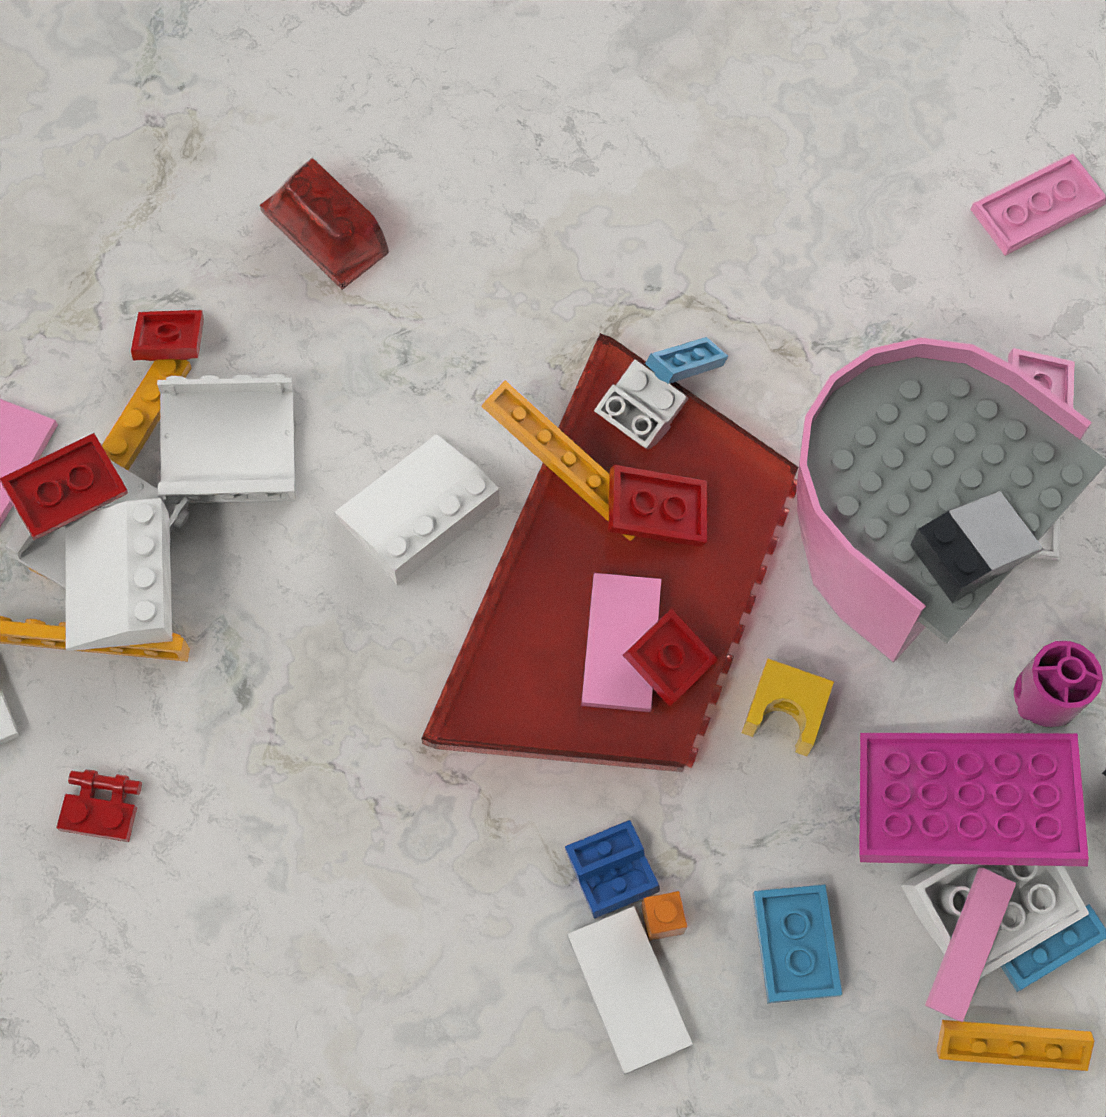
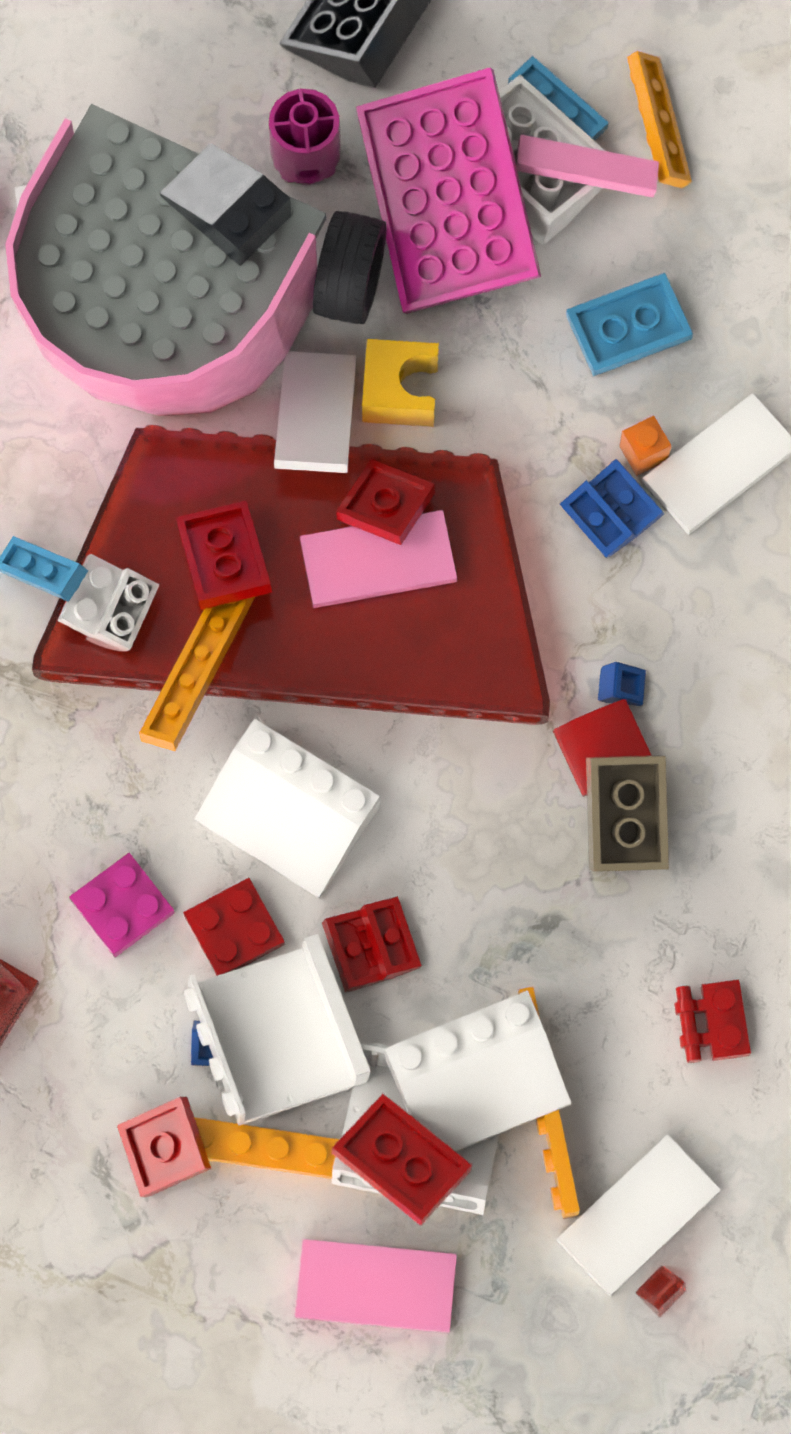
camera: 105 degrees left, 5 degrees up
(277, 541) = (371, 944): none -> red slope
(305, 778) = (627, 813): none -> dark tan brick
(331, 439) = (234, 928): none -> red plate
(381, 787) = (600, 733): none -> red slope
(382, 361) = (121, 905): none -> dark pink plate
(437, 825) = (621, 682): none -> blue slope
(774, 621) = (315, 412): none -> white tile
(909, 682) = (349, 267): none -> black tyre

